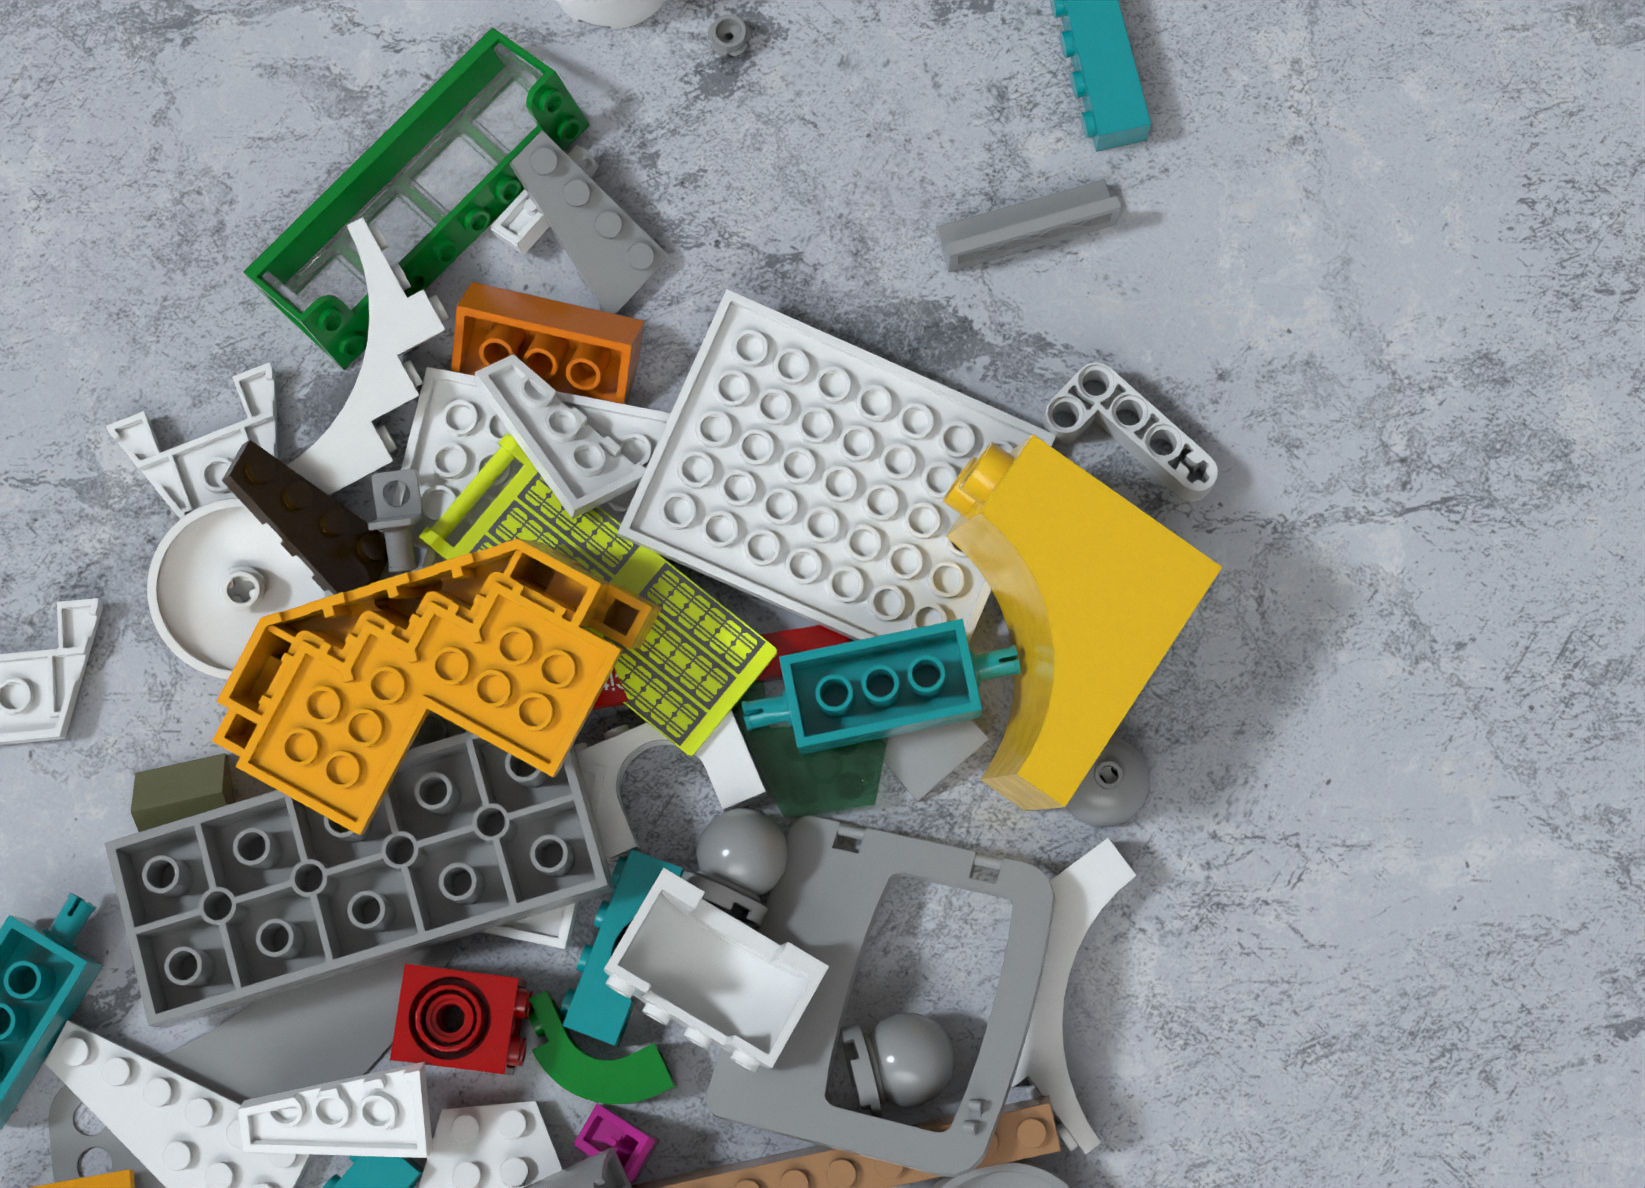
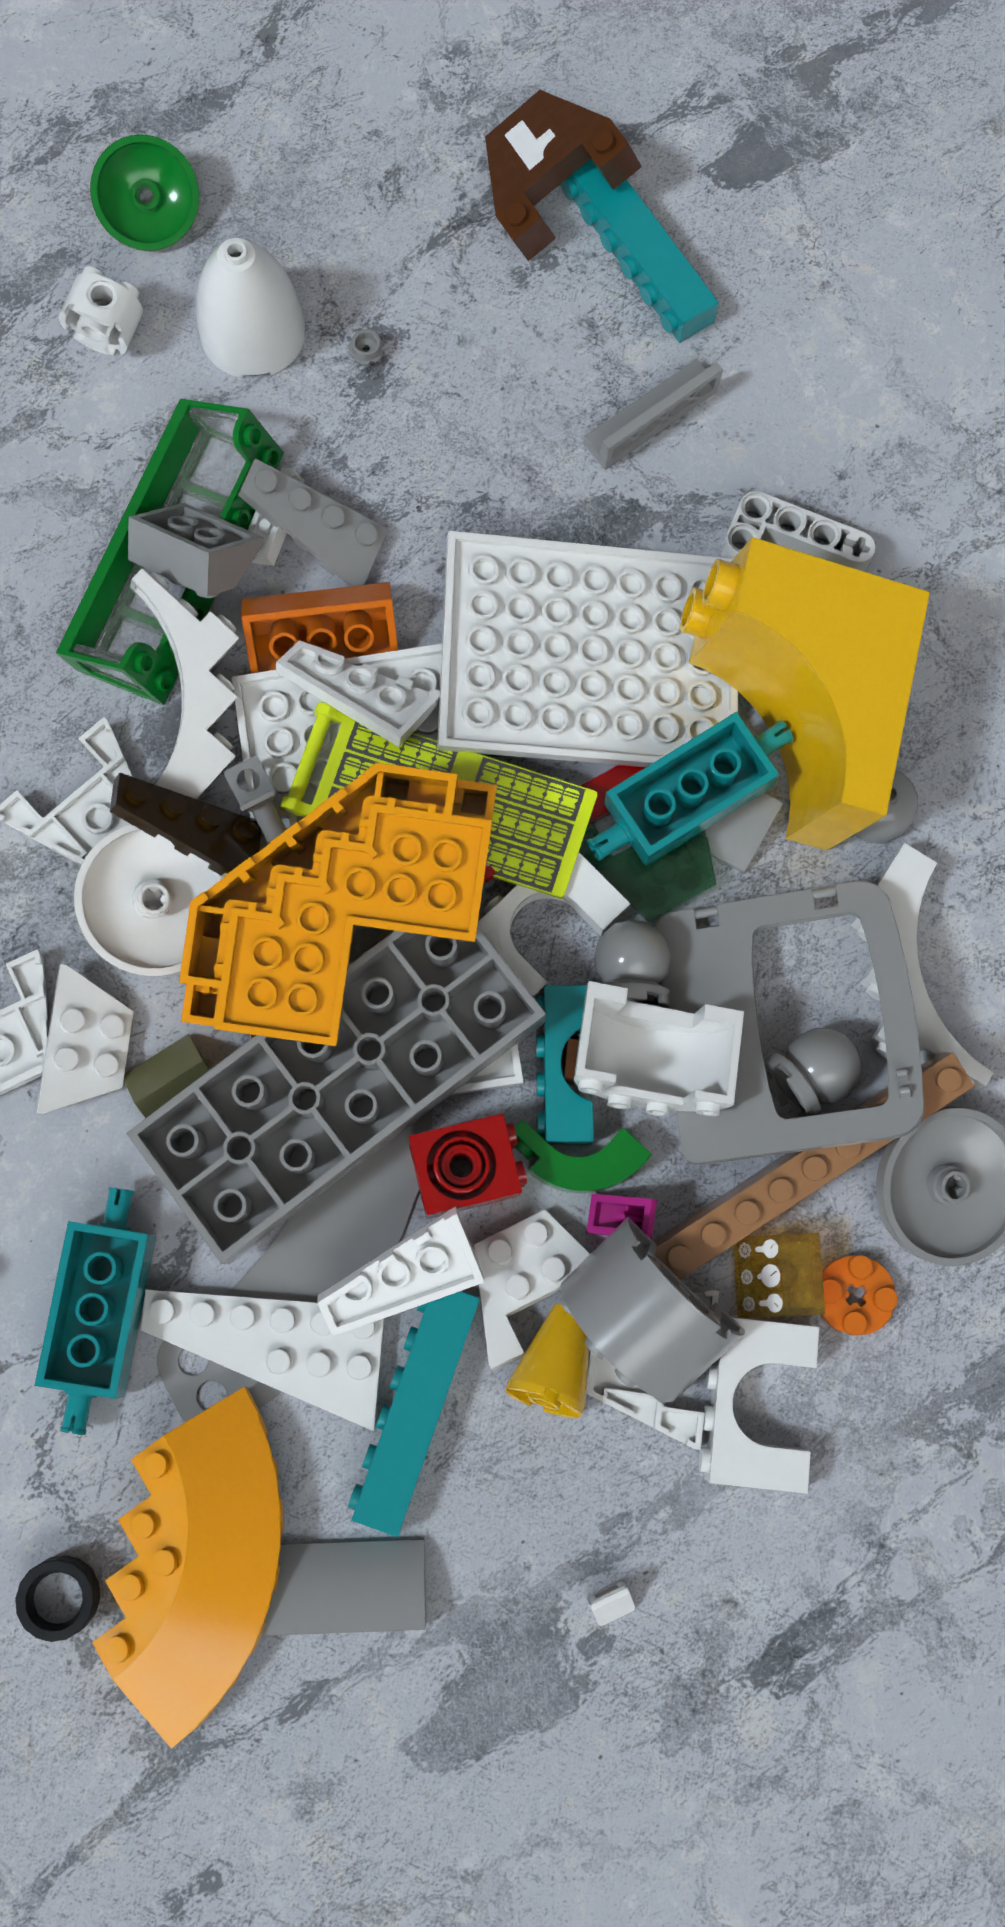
camera: 30 degrees left, 0 degrees up
(106, 723) = (84, 1043): none -> white wing
(435, 207) = (192, 548): none -> light grey slope

